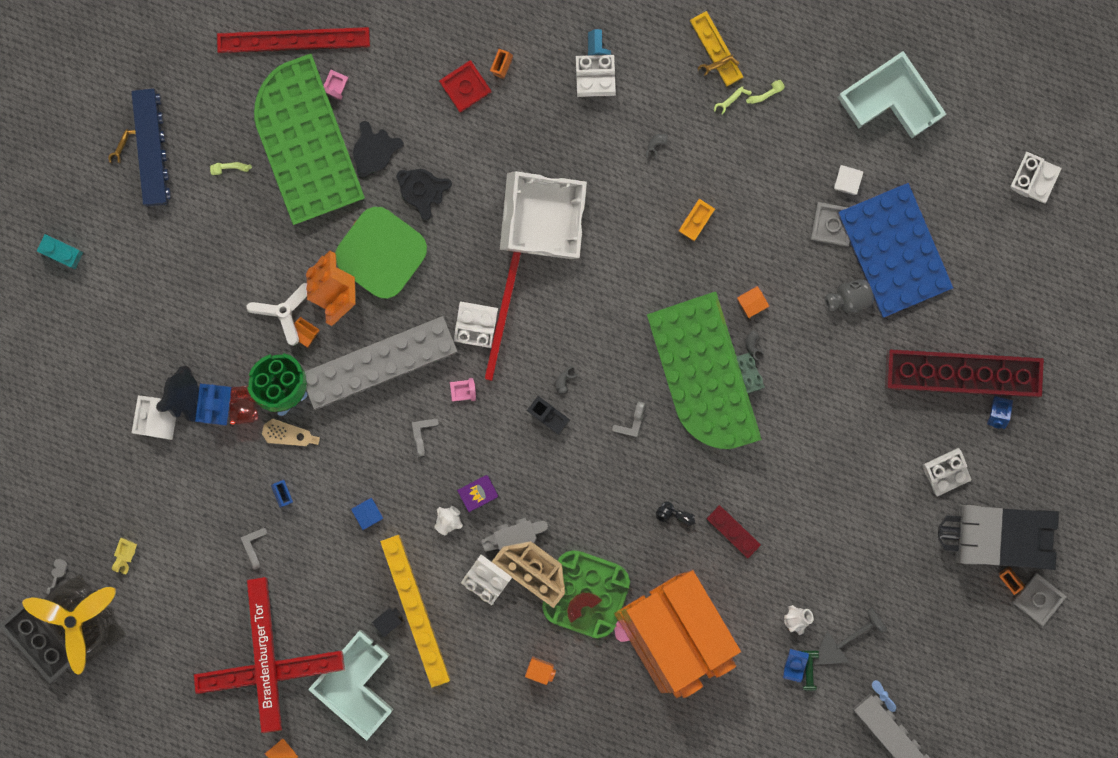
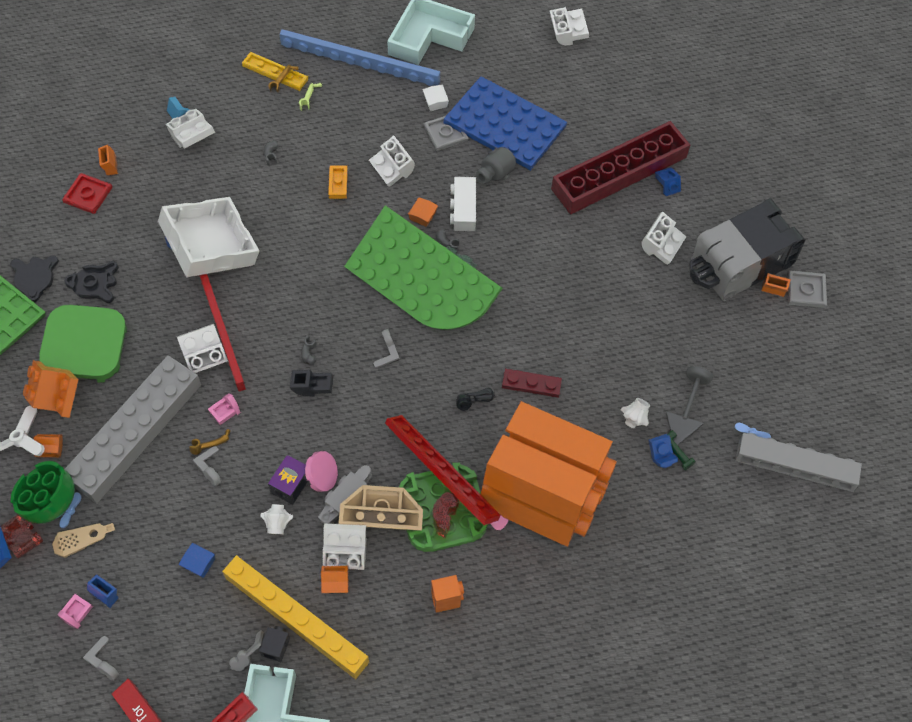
camera: 35 degrees left, 25 degrees down
(252, 494) = (75, 611): none -> bright pink tile
(358, 617) = (243, 657): none -> light grey piece
(434, 415) = (197, 446): none -> pearl gold piece
(463, 600) = (334, 579): none -> orange piece
(507, 504) = (321, 471): none -> bright pink tile
(602, 567) = (443, 470): none -> red tile
(758, 231) = (392, 162): none -> white brick
(777, 87) = (338, 70): yellowish green piece -> none
(794, 318) = (463, 204): none -> white brick
(810, 94) = (360, 58): none -> medium blue plate

